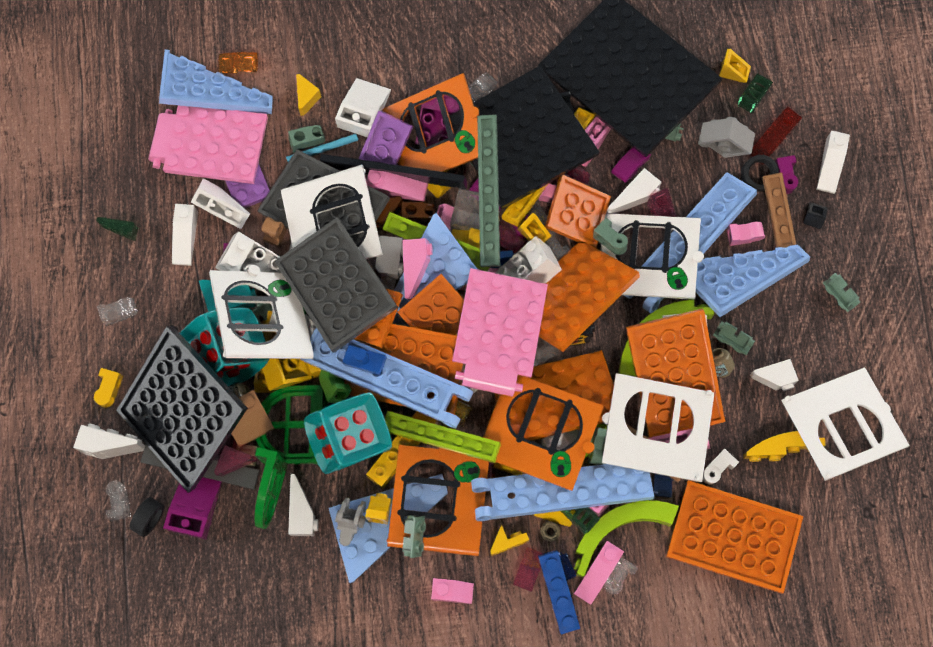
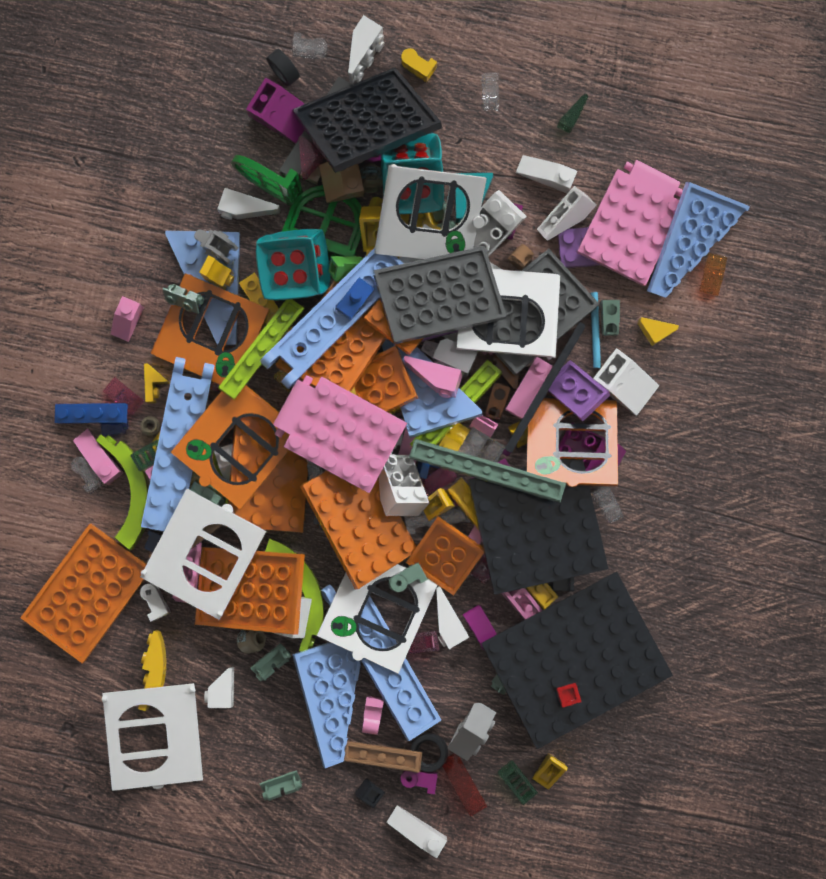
camera: 105 degrees right, 10 degrees up
(664, 64) = (568, 695): none -> red plate

